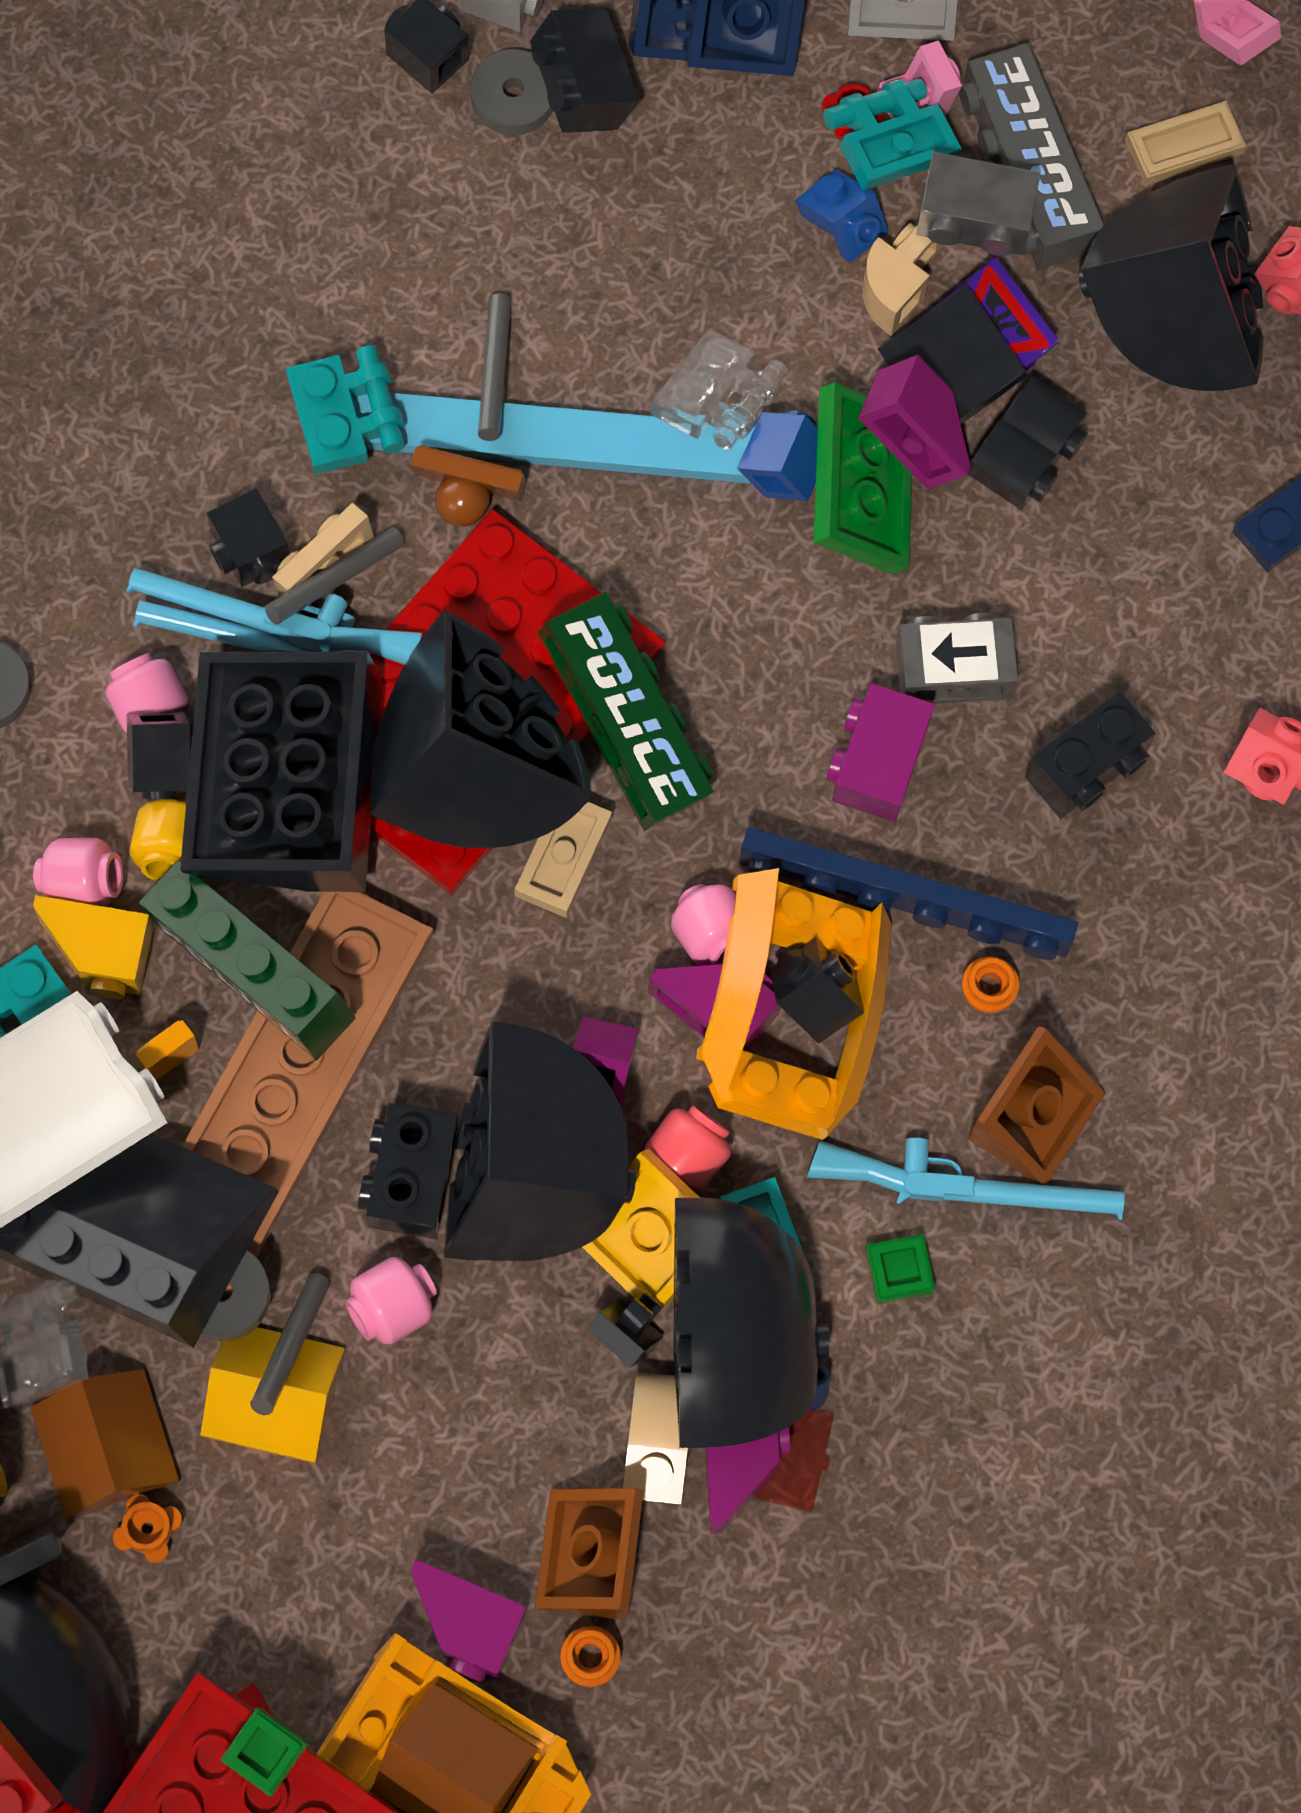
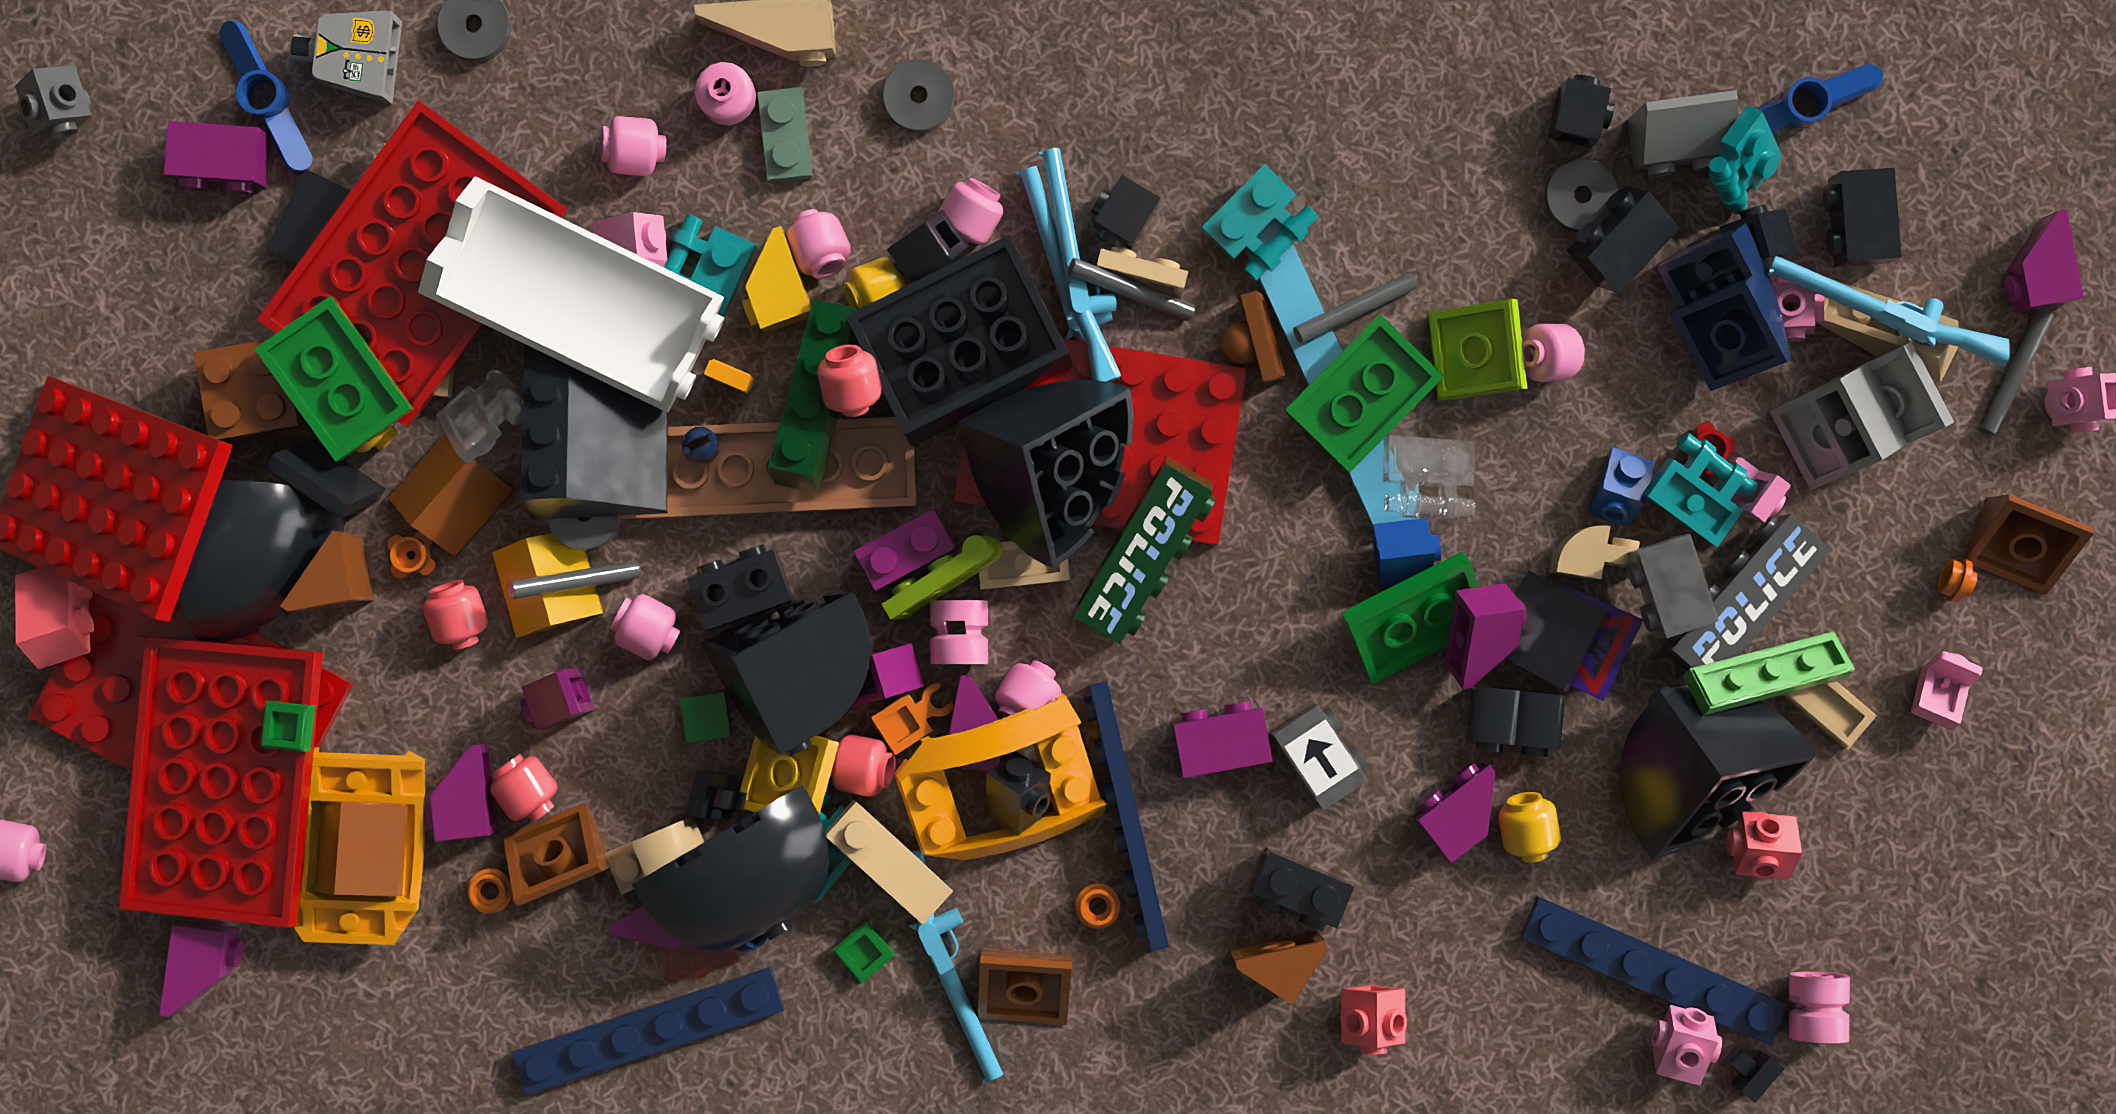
camera: 65 degrees right, 15 degrees up
(127, 1619) = (334, 577): none -> dark orange slope
(235, 1122) = (704, 453): none -> dark blue hinge
(247, 1510) = (455, 614): none -> coral head
(255, 896) = (849, 380): none -> coral head
(413, 1443) = (556, 698): none -> magenta slope
(475, 965) = (905, 550): none -> magenta brick
(494, 1543) = (523, 788): none -> coral head
(529, 936) = (944, 575): none -> lime plate
(532, 1296) = (706, 717): none -> green tile
(592, 403) = (1363, 393): none -> green plate
(614, 270) = (1478, 349): none -> lime plate
(618, 968) = (959, 648): none -> bright pink wheel
(662, 195) = (1552, 352): none -> bright pink head
(663, 1074) = (905, 721): none -> orange plate
(811, 1171) = (888, 862): none -> tan slope
(855, 1565) = (648, 1030): none -> dark blue plate
(1102, 553) = (1461, 814): none -> magenta slope
(1122, 168) = (1768, 673): none -> tile
(1153, 492) = (1529, 826): none -> yellow head
(1168, 813) = (1282, 963): none -> dark orange slope

